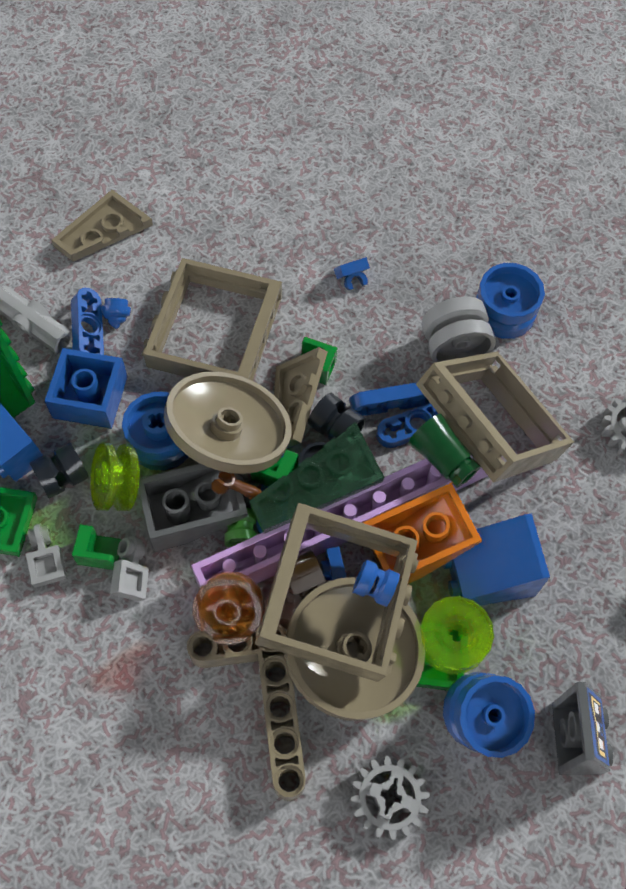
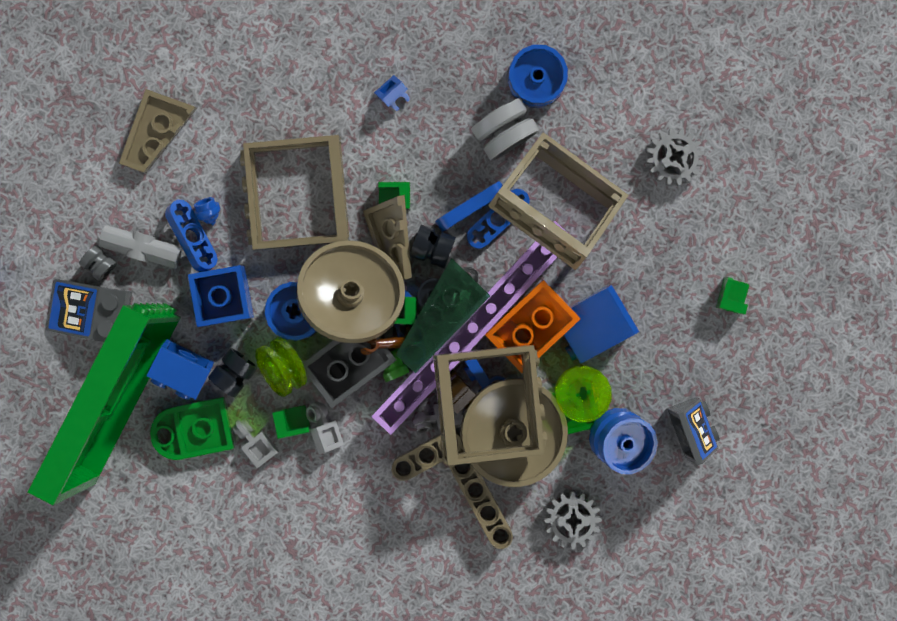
camera: 20 degrees left, 25 degrees up
(228, 607) = (414, 441): clear orange cylinder -> none
(383, 586) = (515, 395): blue wheel -> none
(444, 450) = (530, 257): dark green plant -> none

